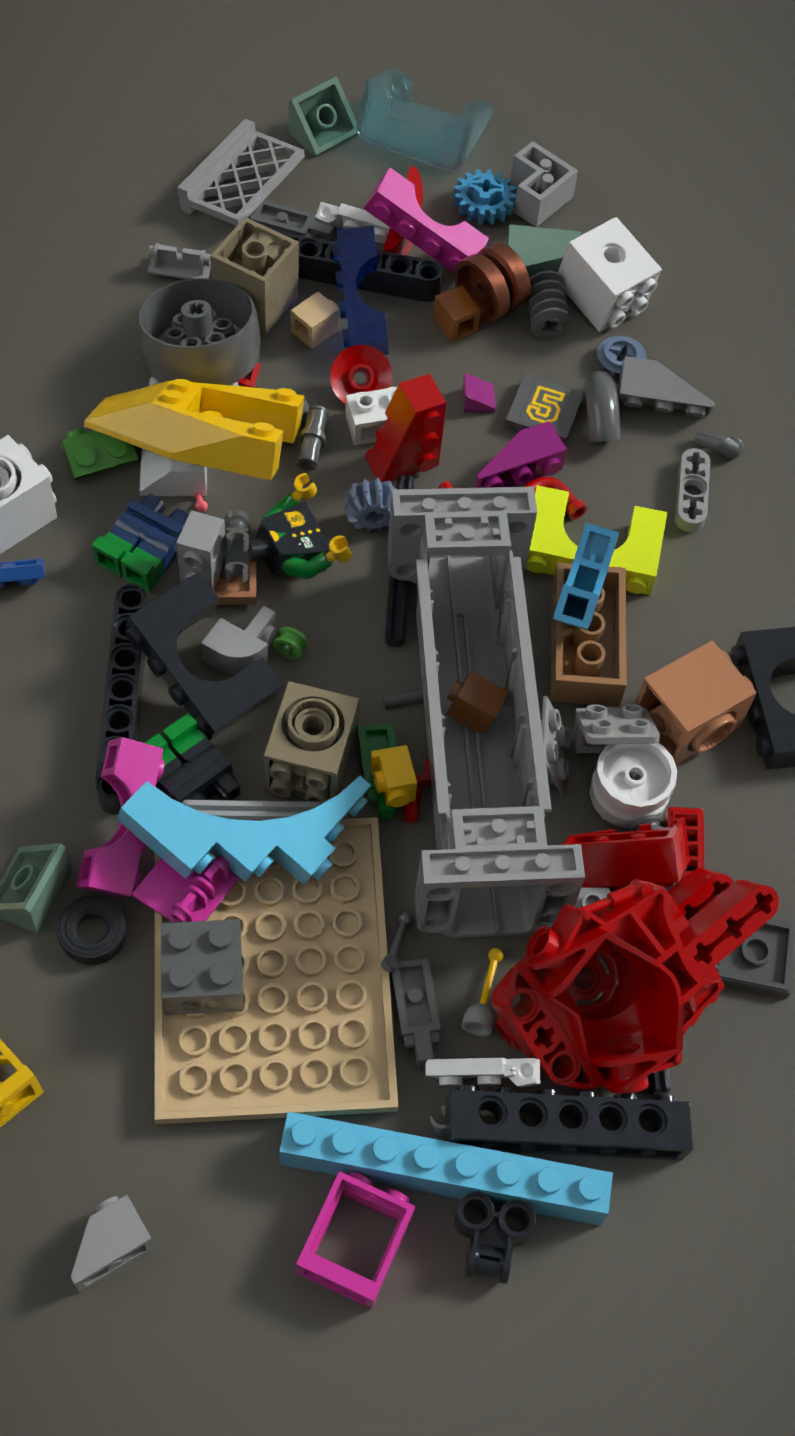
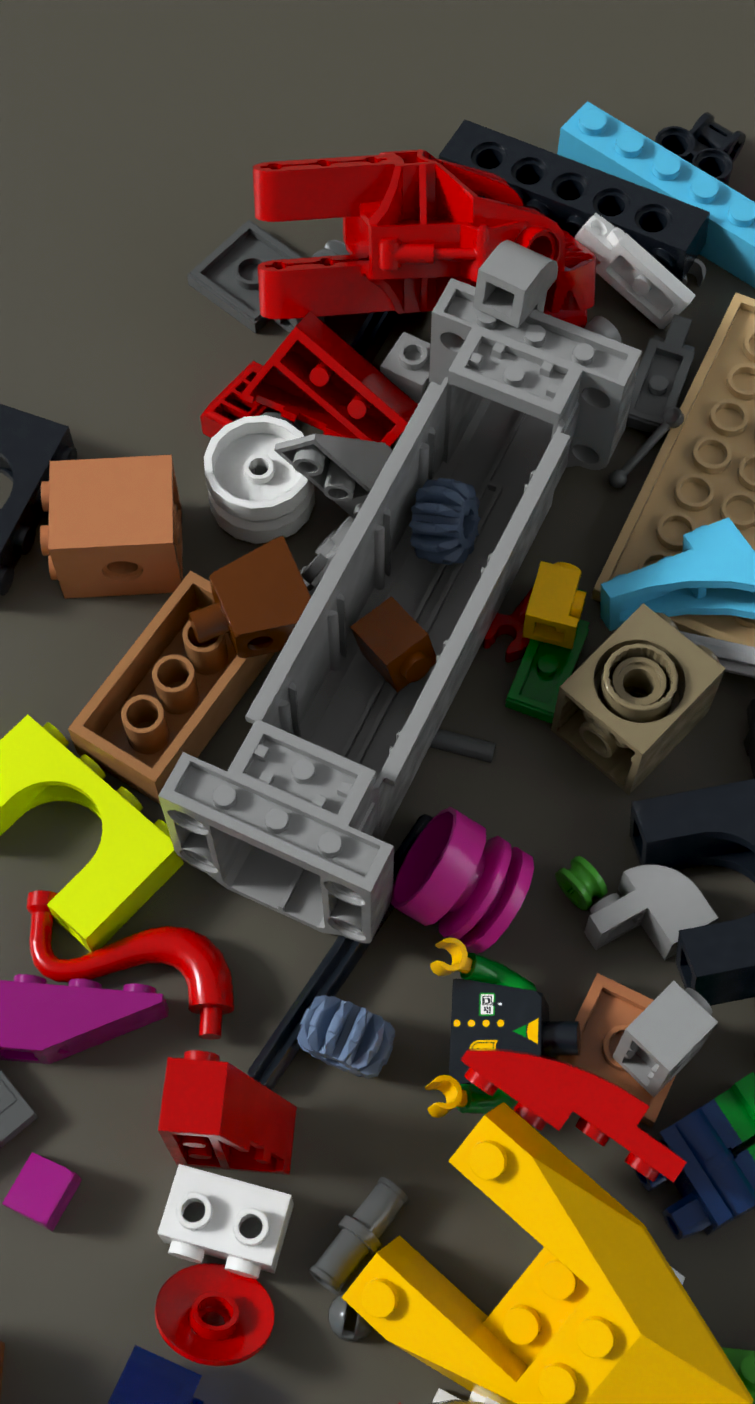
camera: 145 degrees left, 5 degrees up
(237, 544) = (601, 1035): dark grey bar -> none
(241, 505) = (554, 1089): none -> red slope
(355, 590) = (463, 880): none -> dark pink wheel
(494, 783) = (445, 521): none -> sand blue gear
(537, 882) = (513, 283): none -> light grey brick
(569, 668) = (254, 601): none -> reddish brown torso
(581, 794) = (337, 466): none -> light grey slope
(586, 576) = (166, 696): dark azure arch -> none
(602, 726) = (237, 515): light grey bracket -> none

